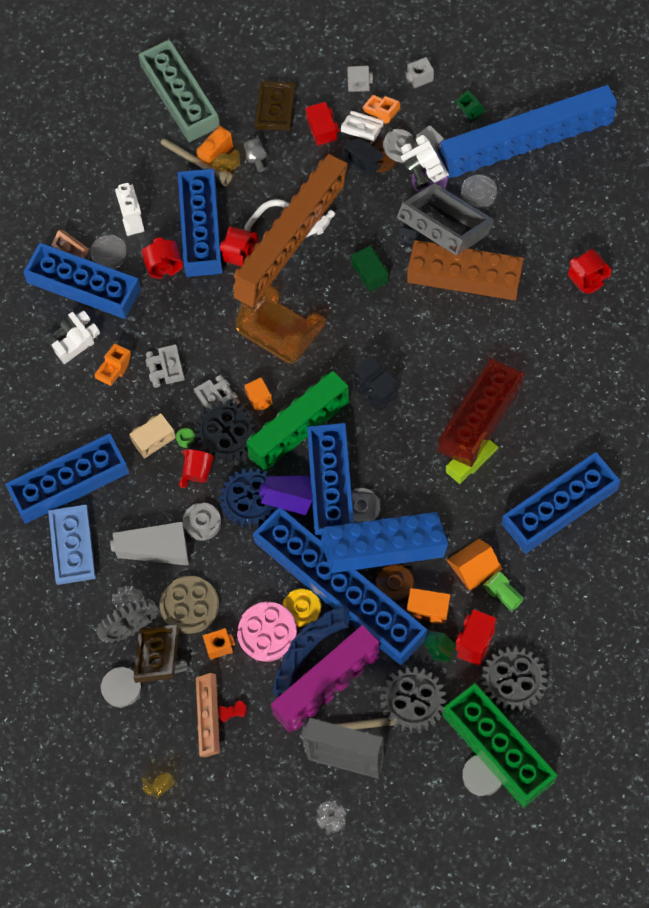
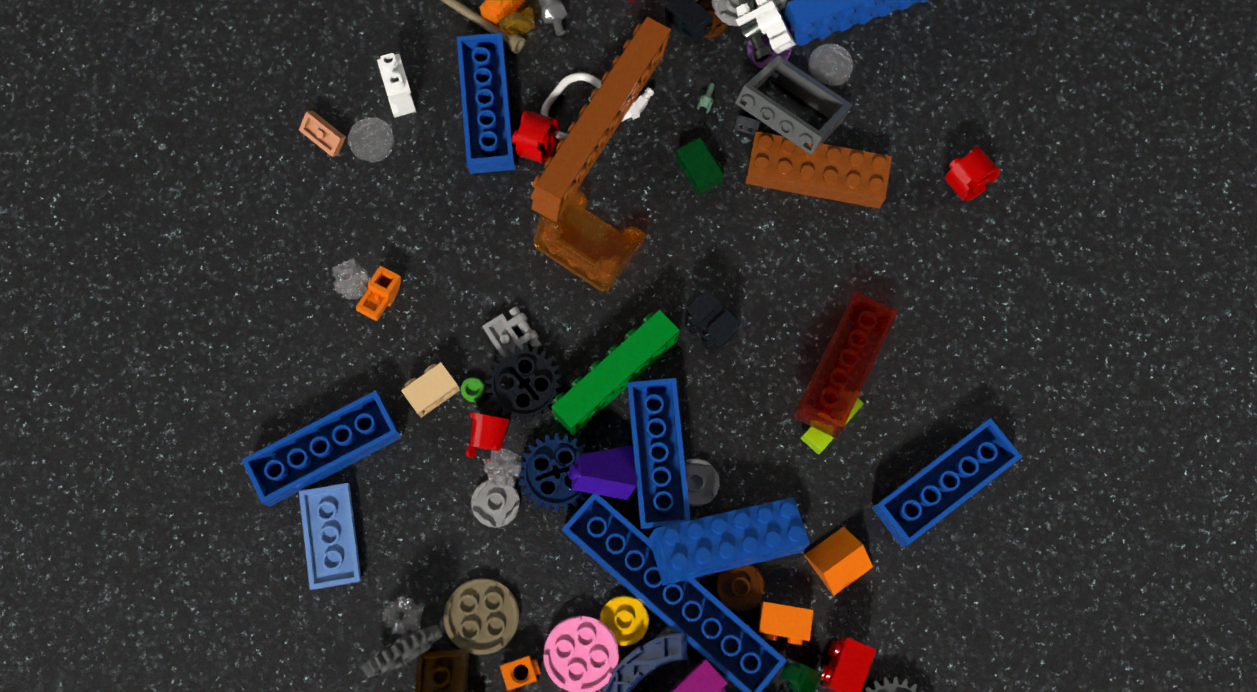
camera: 10 degrees left, 10 degrees up
(76, 339) = (331, 252): white hips -> none
(82, 280) = (337, 179): blue brick -> none
(91, 354) = (350, 279): none -> clear brick
(152, 544) = (435, 536): light grey slope -> none
(162, 258) = (439, 150): red brick -> none
(171, 366) = (452, 293): light grey plate -> none
(207, 491) = (502, 468): none -> clear brick
(258, 394) = (564, 334): orange brick -> none
(377, 219) = (706, 99): none -> sand green hand
(499, 587) = (872, 595): bright green piece -> none

